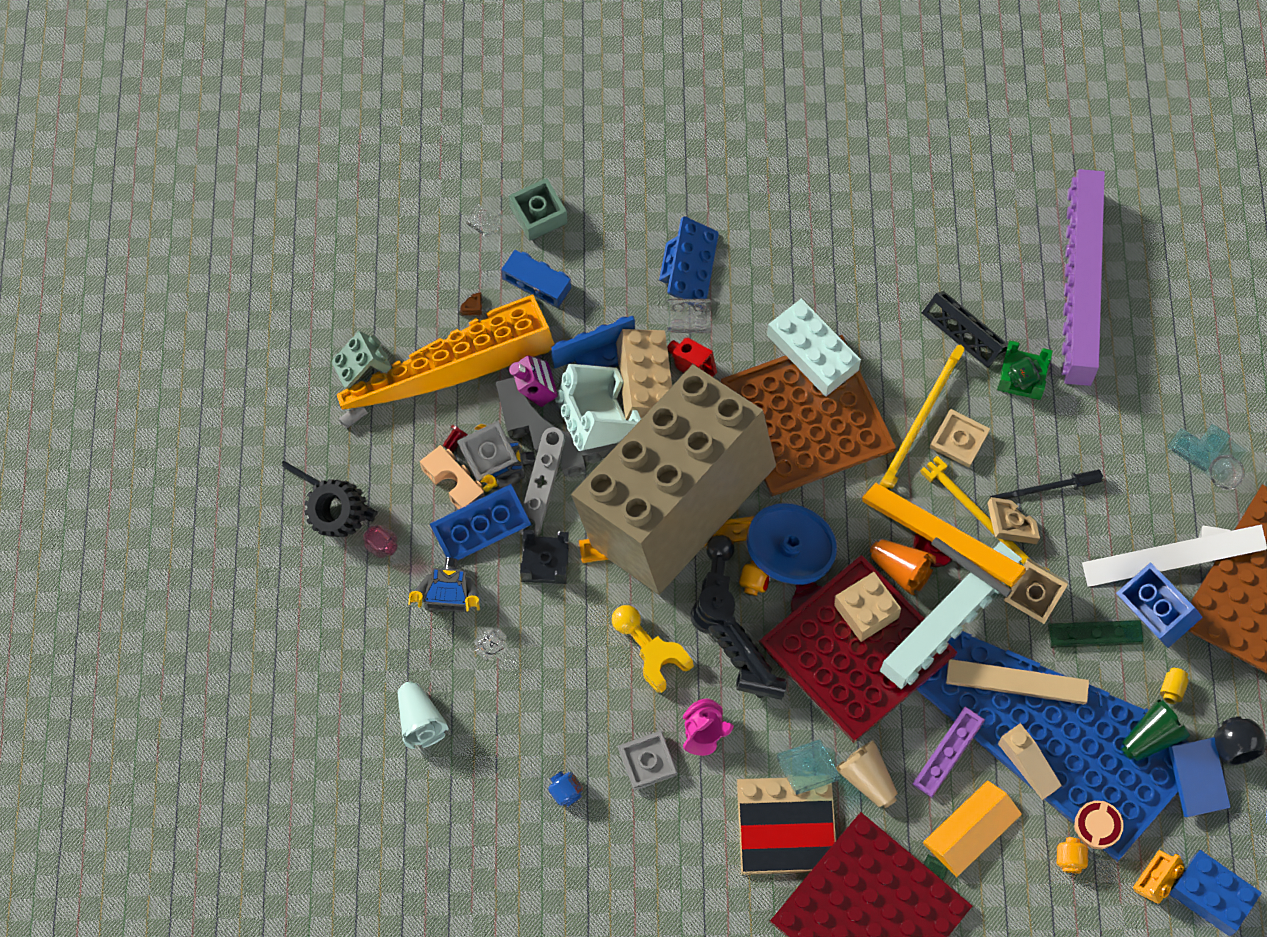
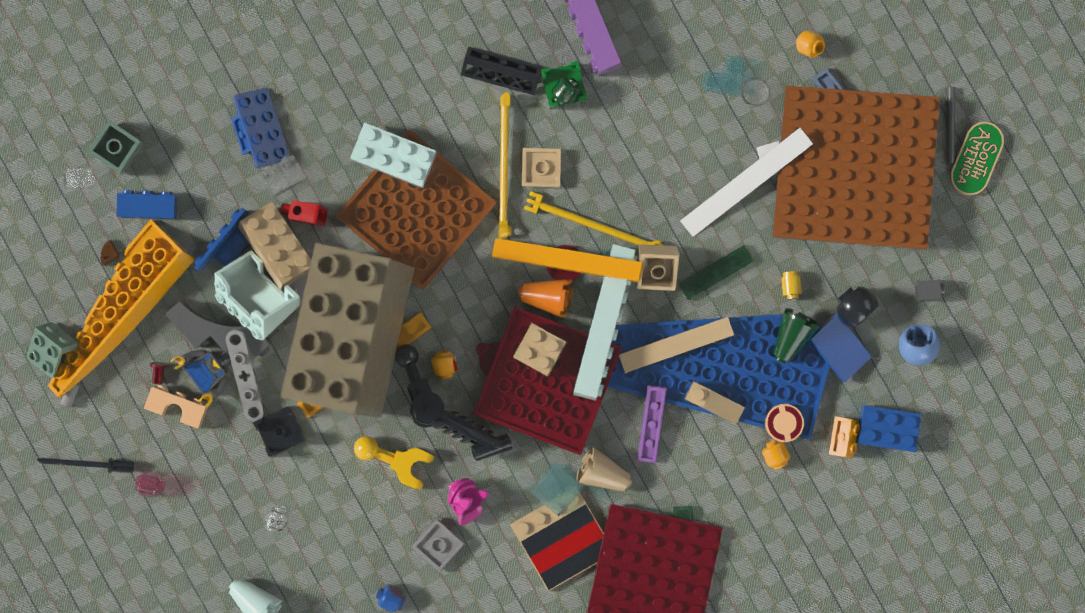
camera: 25 degrees left, 20 degrees up
(319, 508) = (96, 491): black tyre -> none
(446, 590) = (221, 496): torso -> none
(480, 523) = (217, 432): blue slope -> none
(487, 450) = (191, 376): light grey plate -> none
(534, 380) = (194, 296): magenta torso -> none
(791, 543) = (457, 324): blue dish -> none
(972, 567) = (601, 279): dark grey bar -> none
(972, 828) = (695, 470): light orange slope -> none
(1010, 523) = (612, 217): tan plate -> none
(1077, 480) = (647, 155): black piece -> none
(1159, 605) = (752, 232): blue brick -> none

